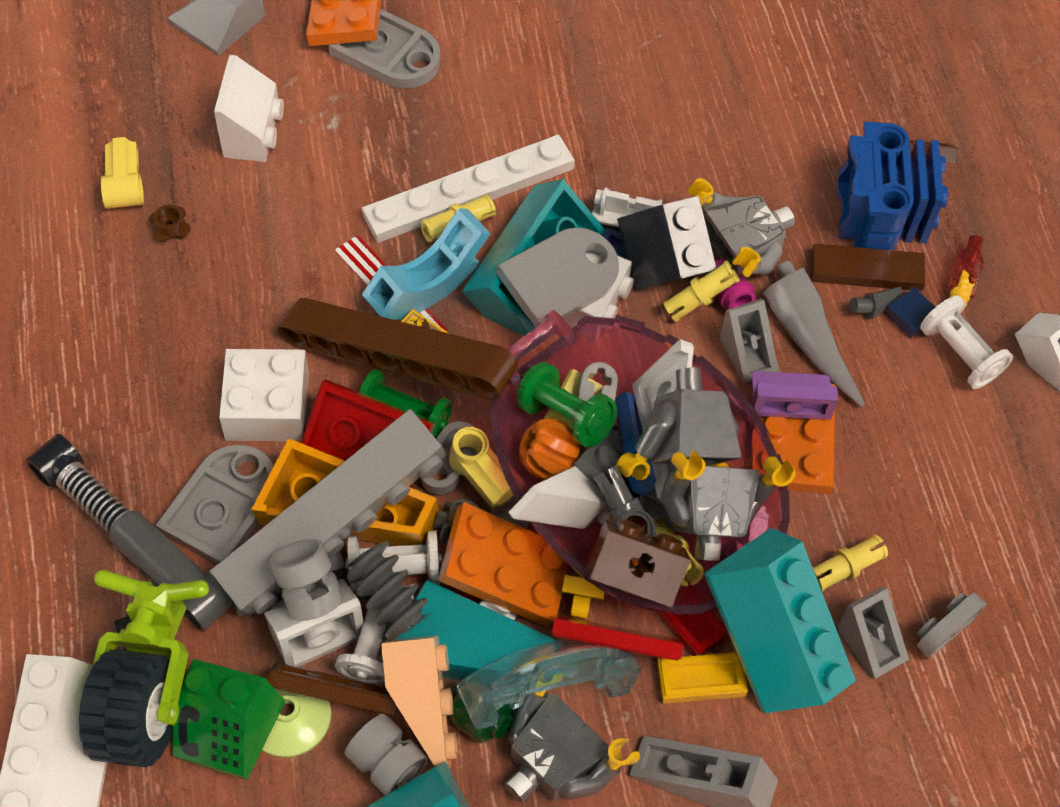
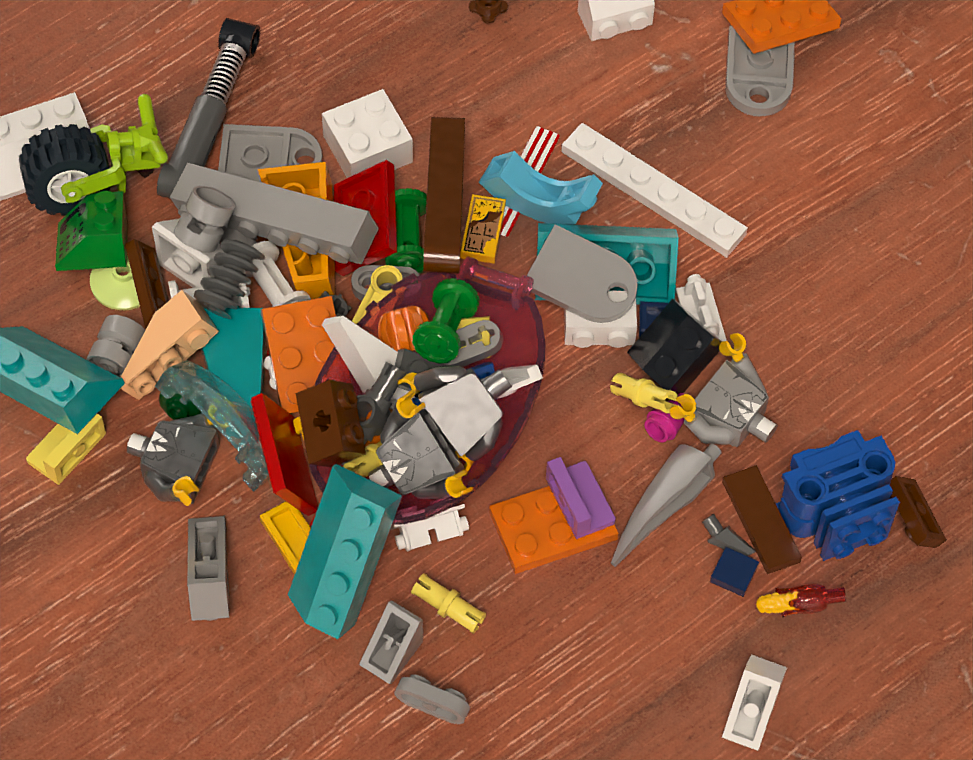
camera: 65 degrees right, 0 degrees up
(434, 226) = (617, 194): light yellow pin -> none
(749, 339) = (619, 450): light grey slope -> none
(966, 342) = (706, 640): white hose -> none

